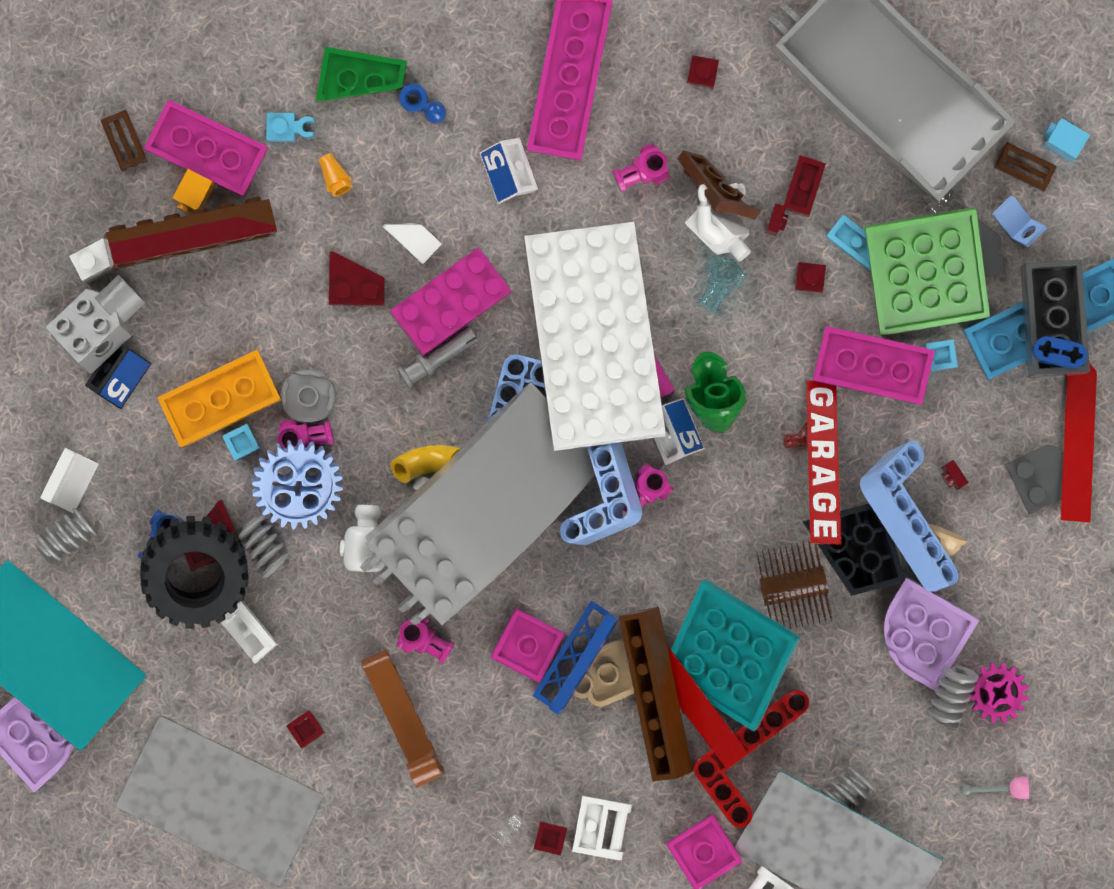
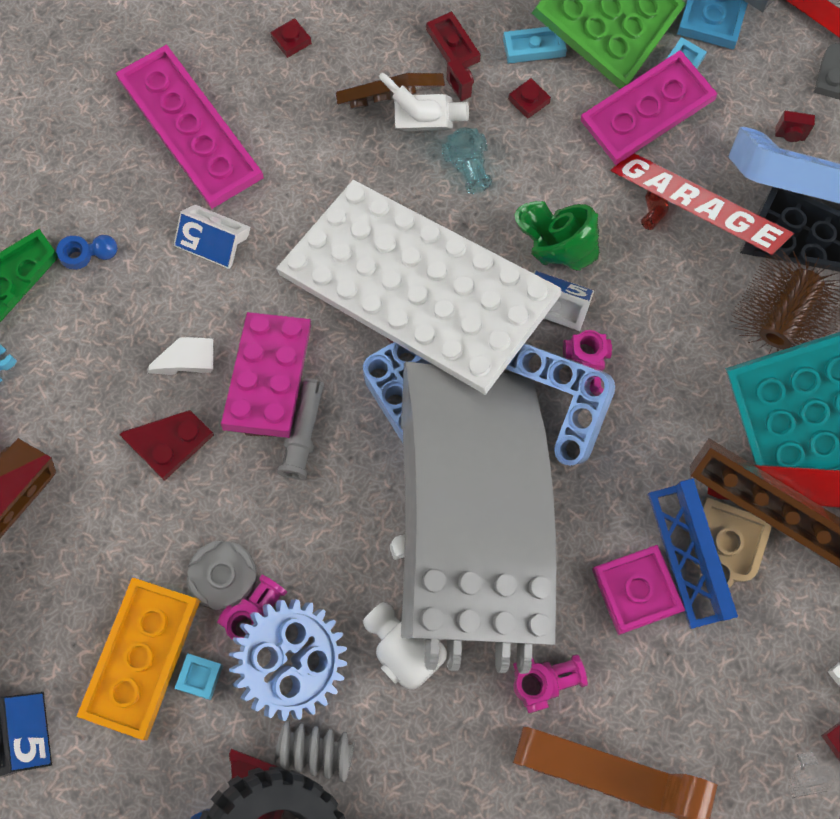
camera: 50 degrees left, 15 degrees down
(335, 177) = (65, 371): light orange cone -> none
(421, 461) = (381, 525): yellow cylinder -> none
(641, 171) = (318, 137): dark pink connector -> none

